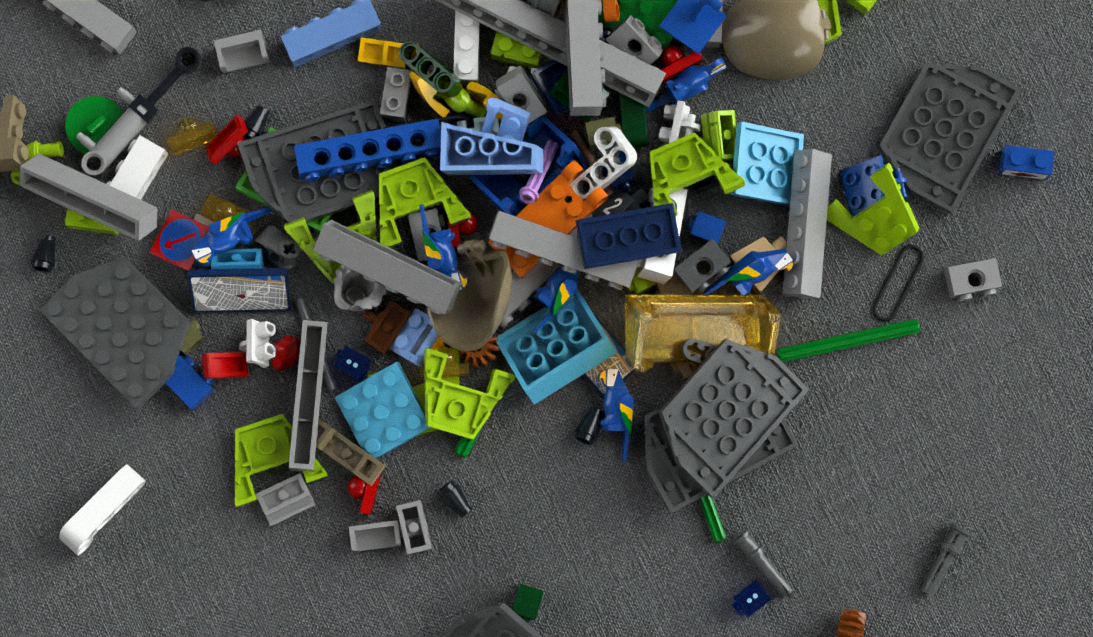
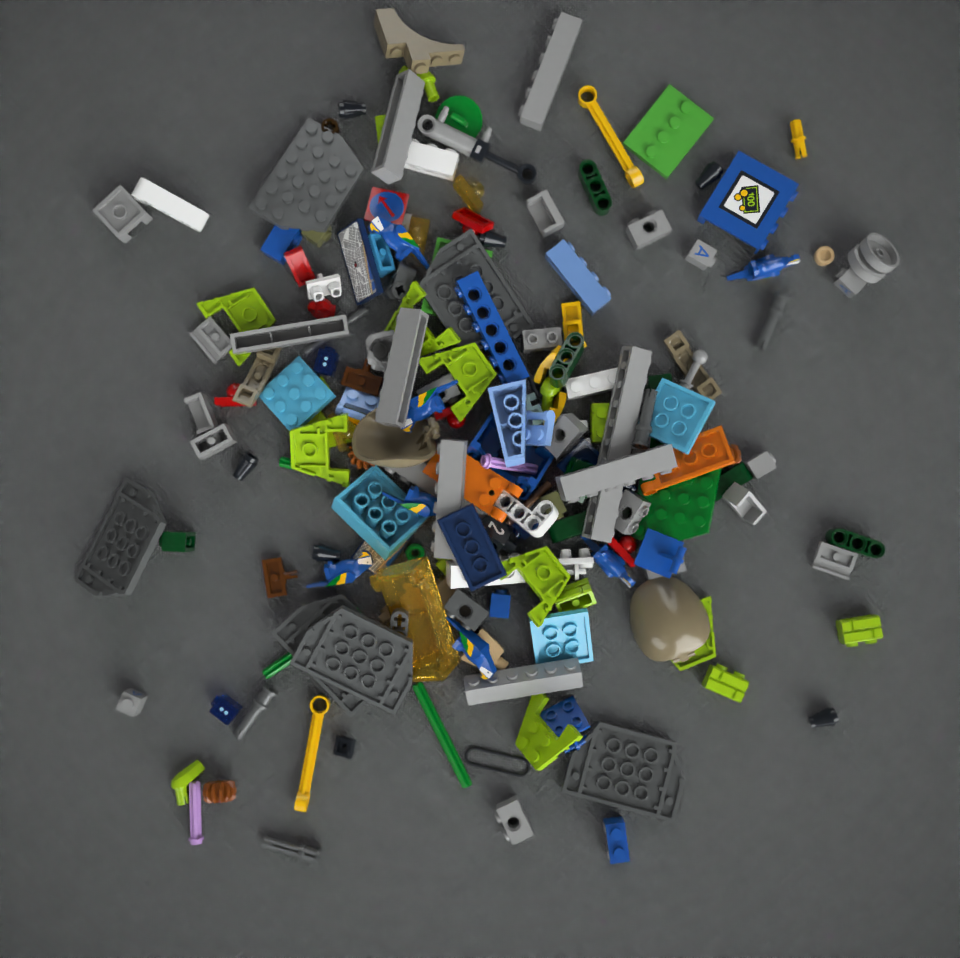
camera: 75 degrees right, 5 degrees up
(55, 281) = (326, 122): none -> dark brown bush
(95, 572) = (121, 213): none -> light grey panel
(603, 494) = (276, 577): none -> reddish brown plate
(609, 313) = (414, 546): none -> green plate
(833, 463) = (344, 746): none -> black tile
(877, 527) = (303, 794): none -> yellow piece

